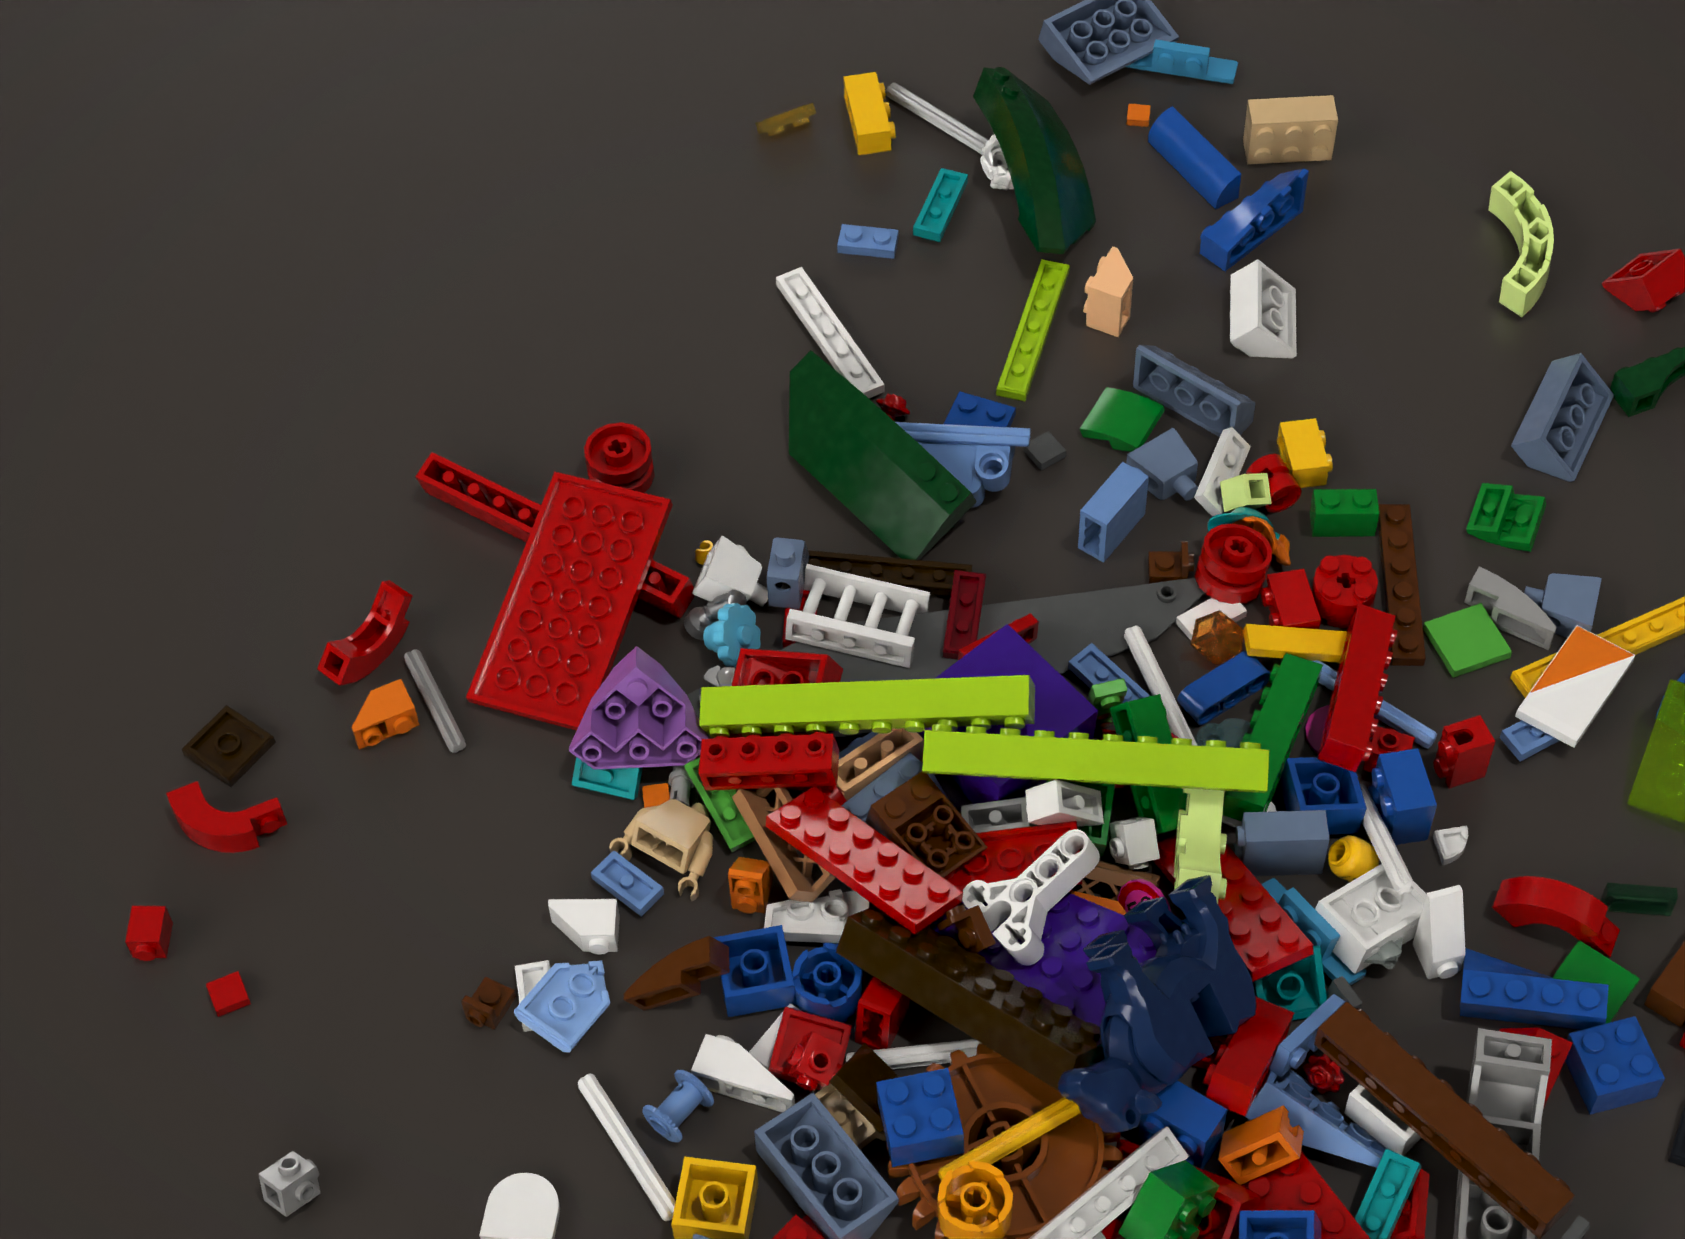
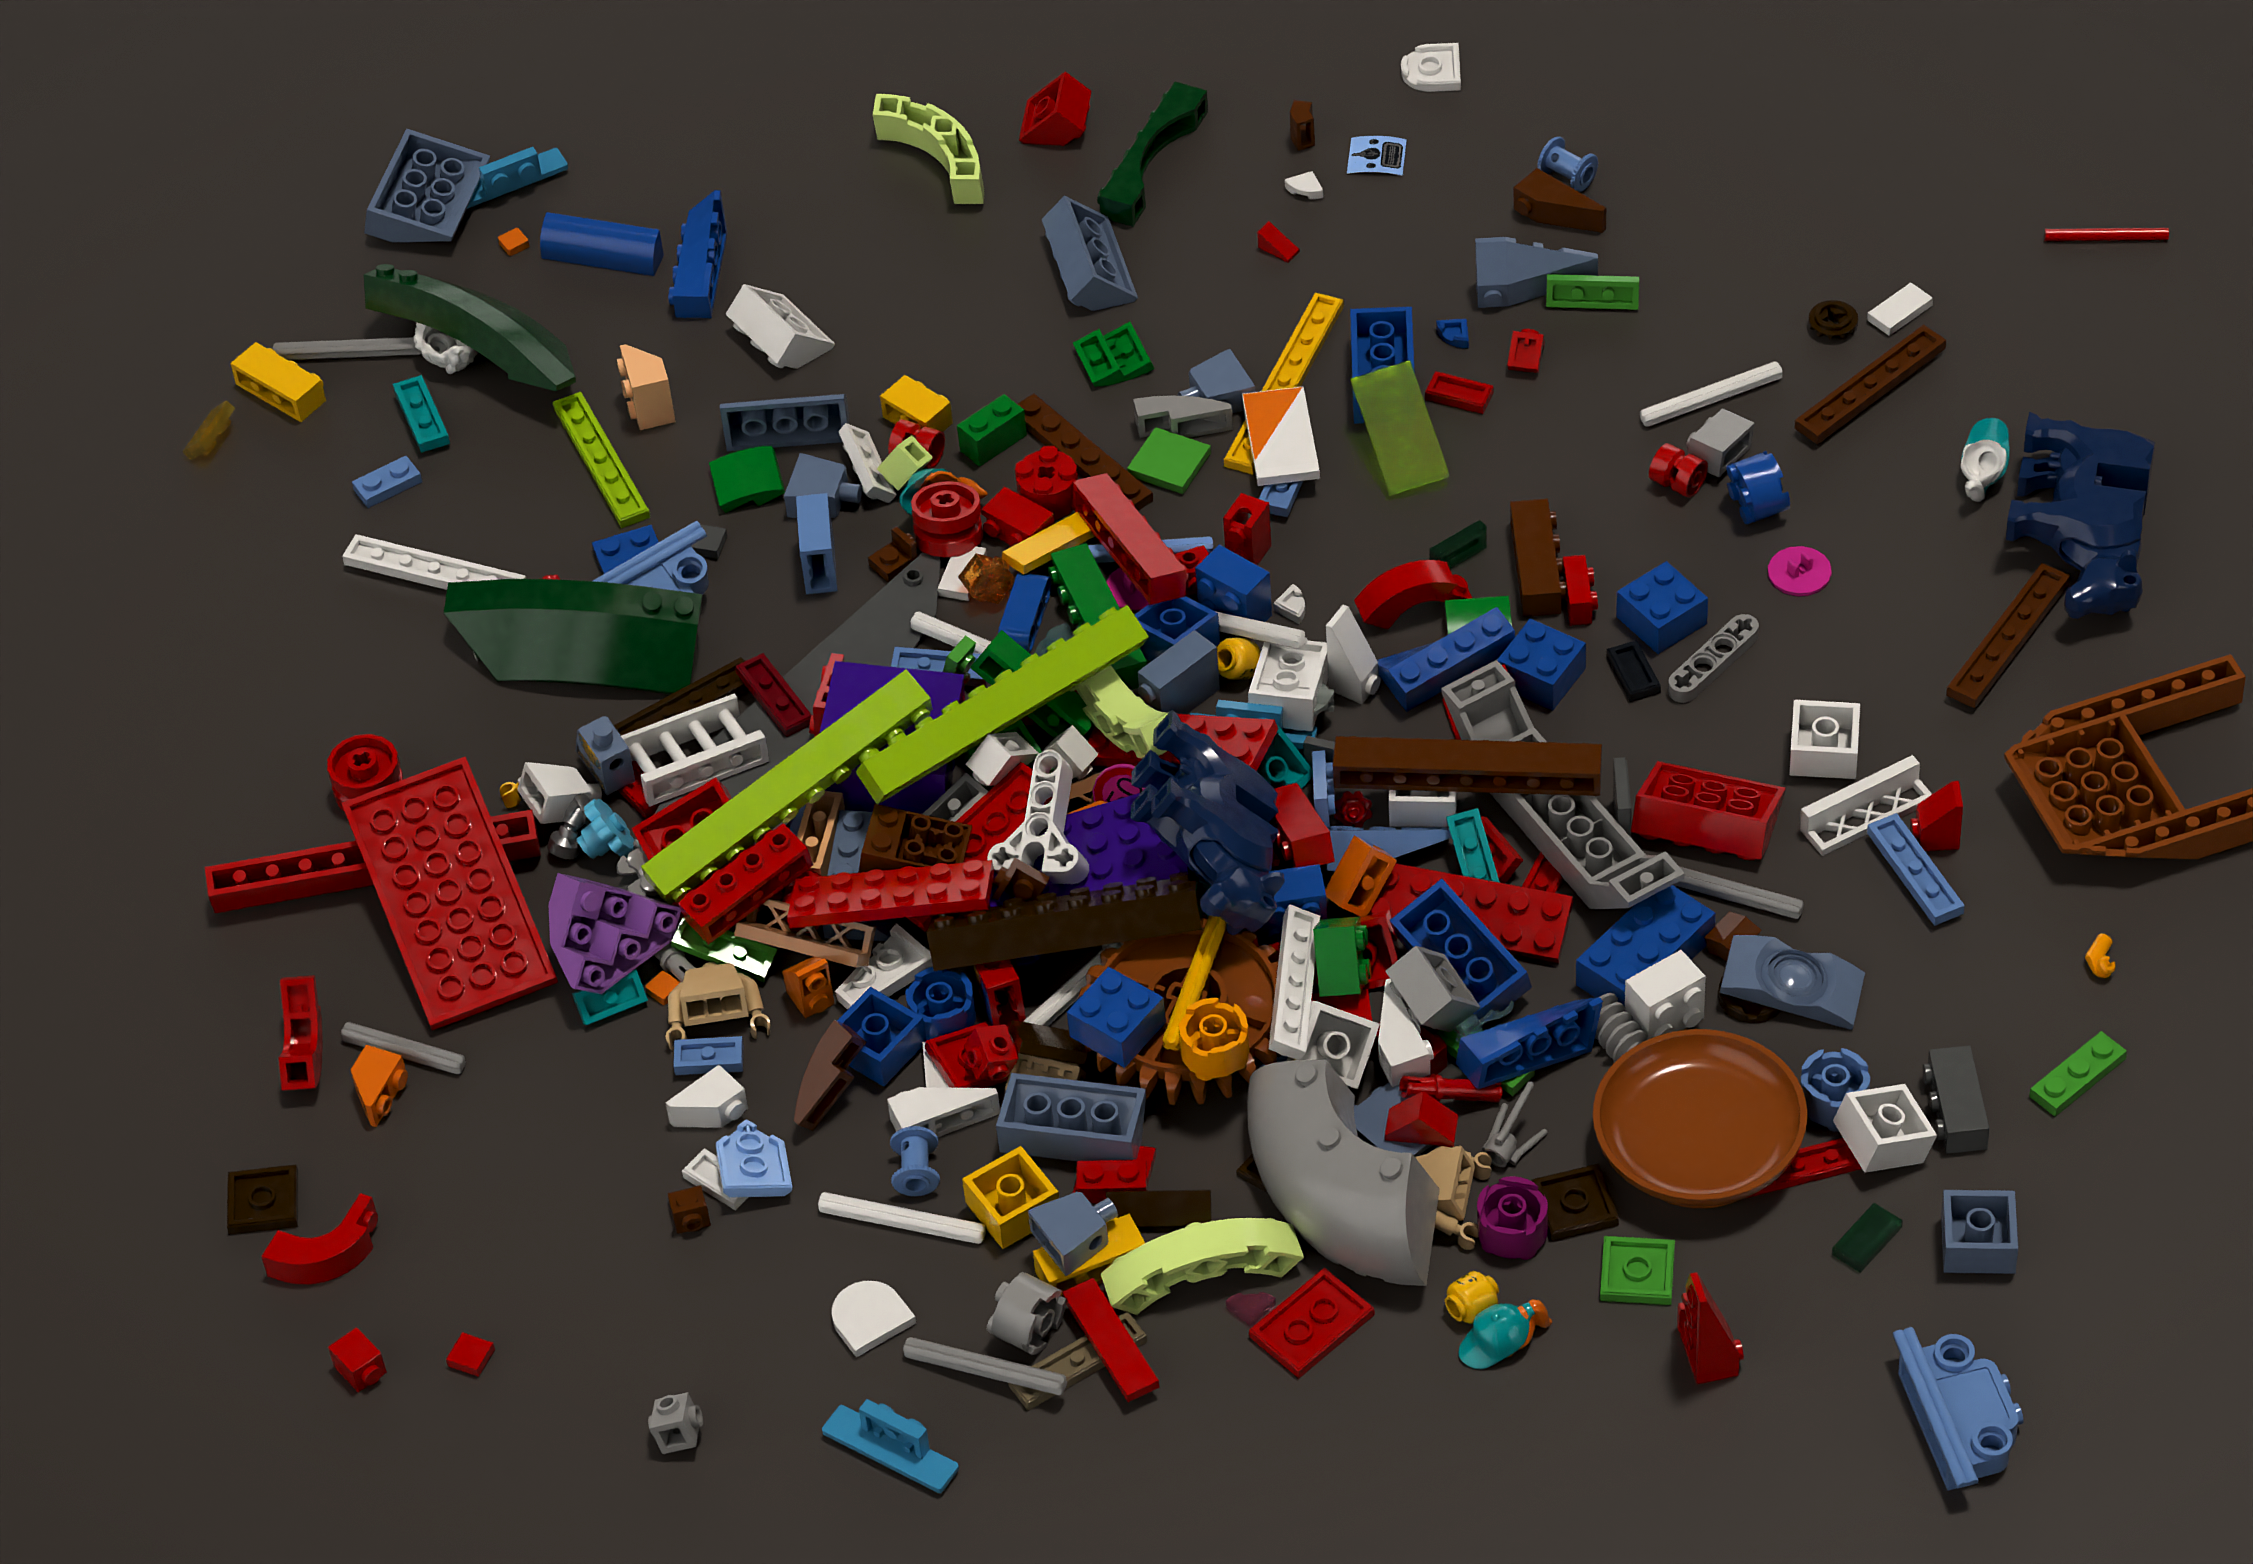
camera: 40 degrees left, 5 degrees down
(1290, 129) = (662, 172): tan brick -> none

